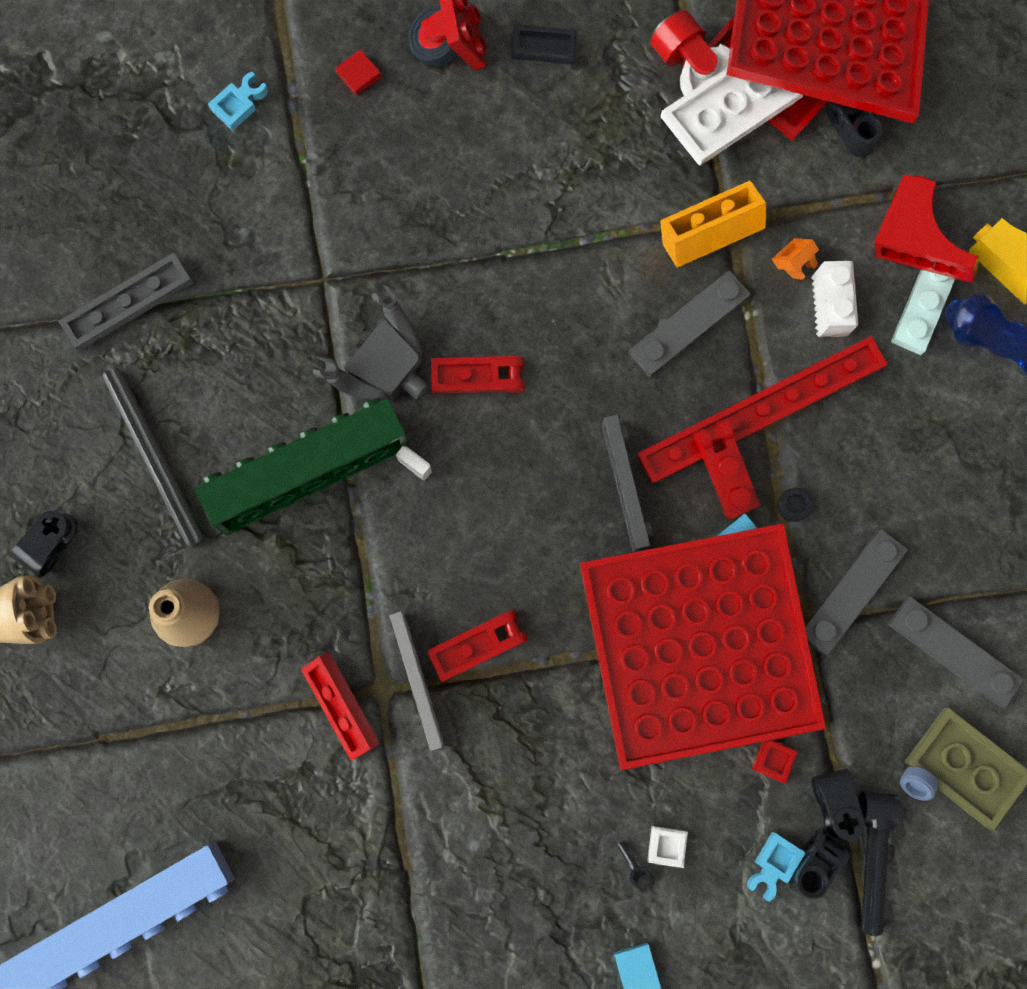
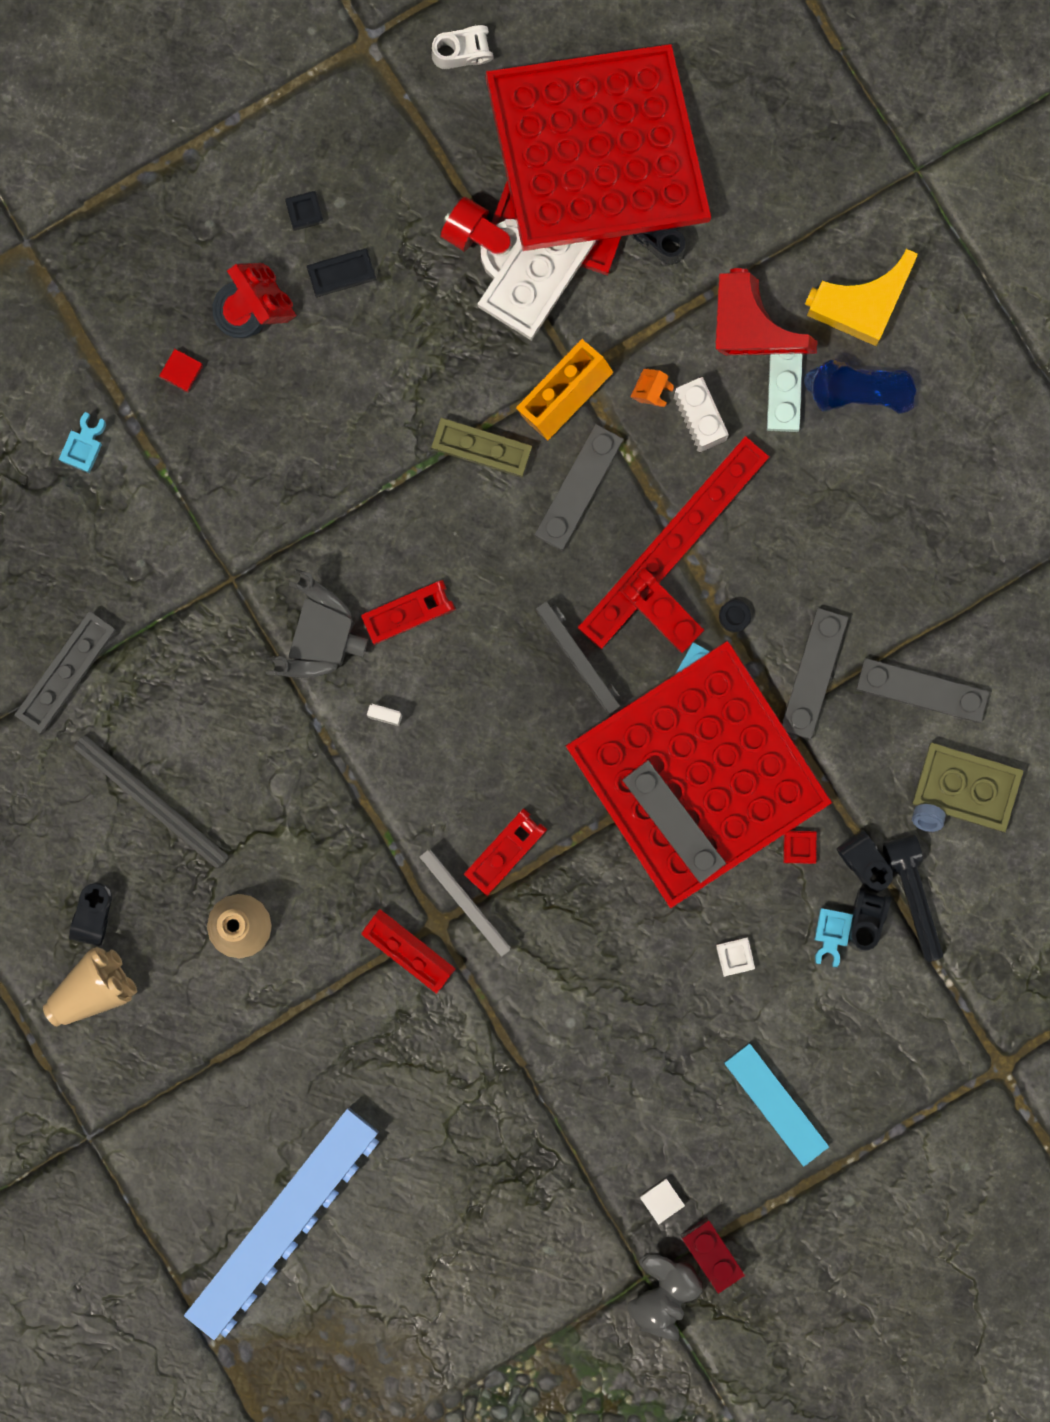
camera: 15 degrees left, 5 degrees up
(302, 467) = (291, 758): dark green brick -> none
(611, 249) = (481, 447): none -> olive plate
(636, 870) = (716, 986): black hand -> none
(659, 683) = (673, 821): none -> dark grey plate

